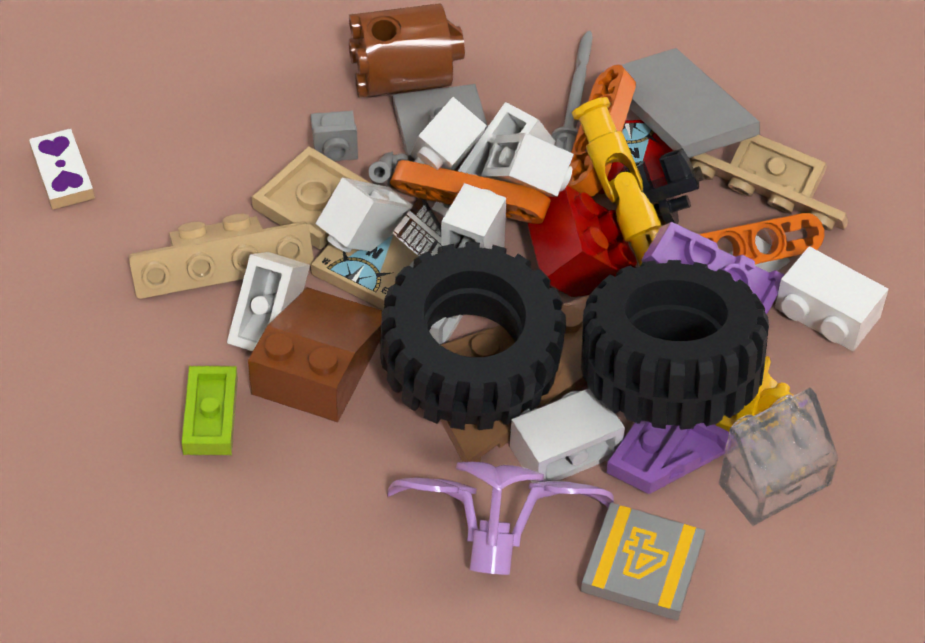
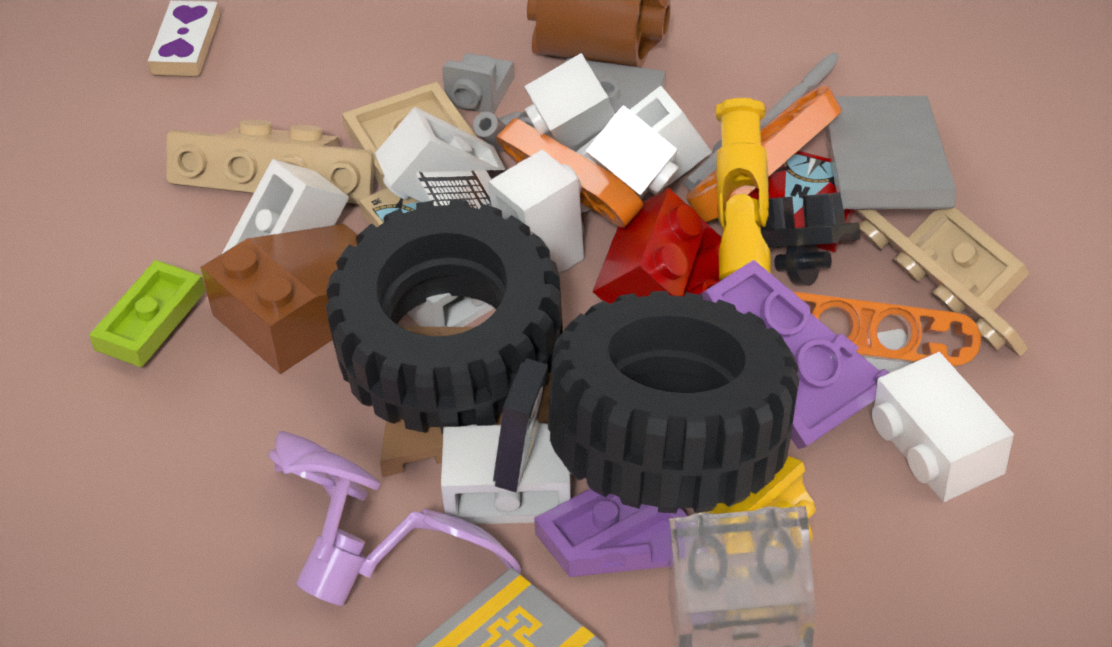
camera: 30 degrees right, 5 degrees down
(591, 399) = (519, 424): none -> black tile

